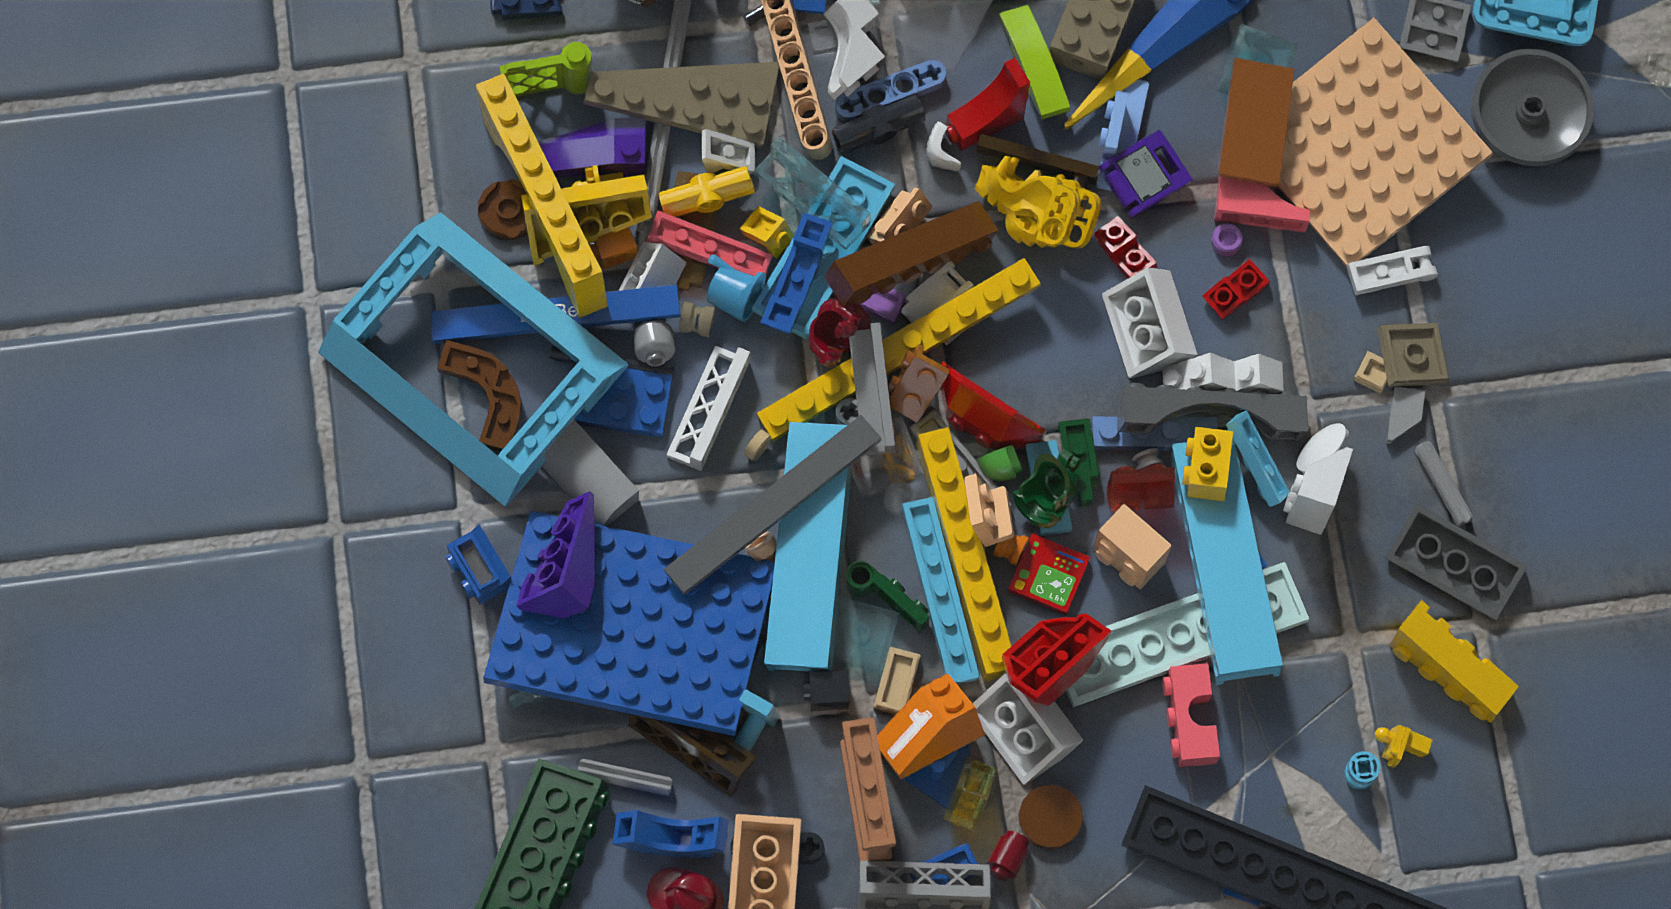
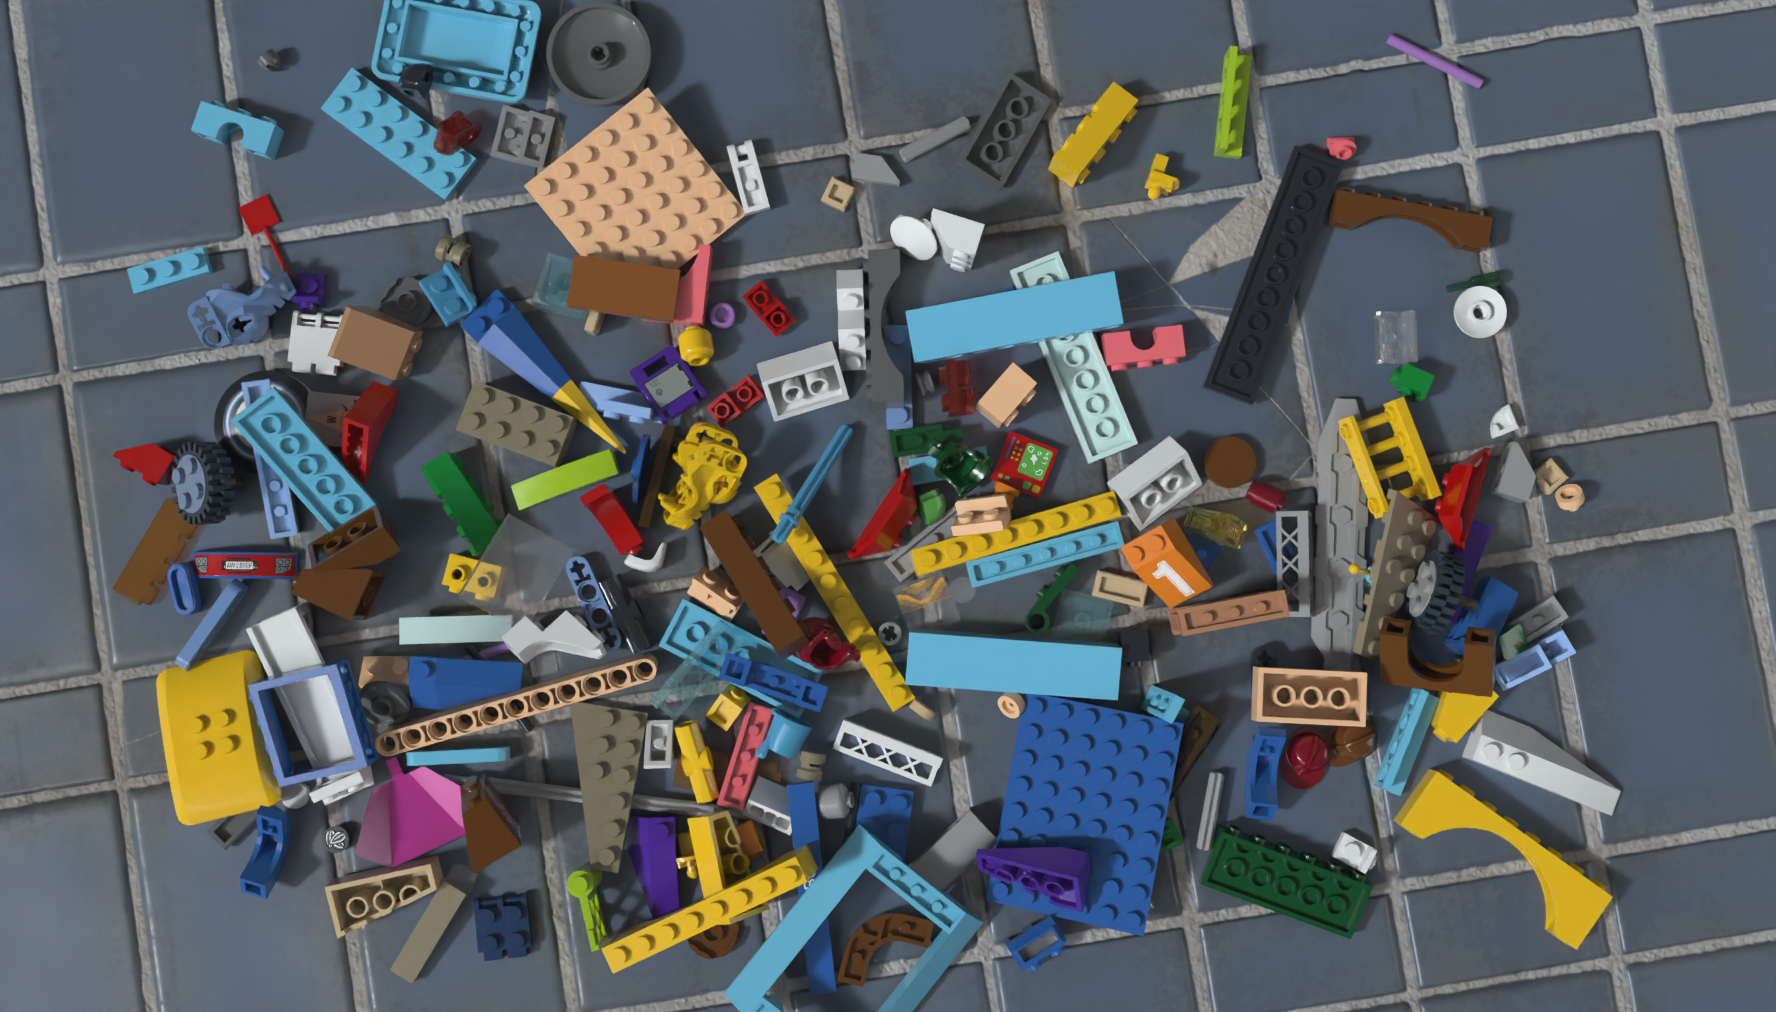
camera: 90 degrees left, 15 degrees up
(596, 724) = (1171, 836): none -> green tile
(772, 505) = (983, 697): dark grey tile -> none
(872, 385) = (878, 615): light grey fence -> none
(915, 384) = (868, 579): dark orange bracket -> none
(1026, 322) = (790, 518): none -> dark azure axle
(1047, 139) = (640, 467): none -> blue piece
(1054, 656) = (1109, 462): red wedge -> none
(1190, 206) = (696, 345): none -> yellow head
(1209, 463) = (937, 330): yellow brick -> none
(1216, 96) = (594, 323): none -> tan tile
(1257, 459) = (924, 291): medium azure plate -> none
(1359, 776) = (1180, 215): medium azure wheel -> none
(1413, 354) = (823, 161): dark tan tile -> none
(1497, 836) = (1232, 104): none -> lime fence

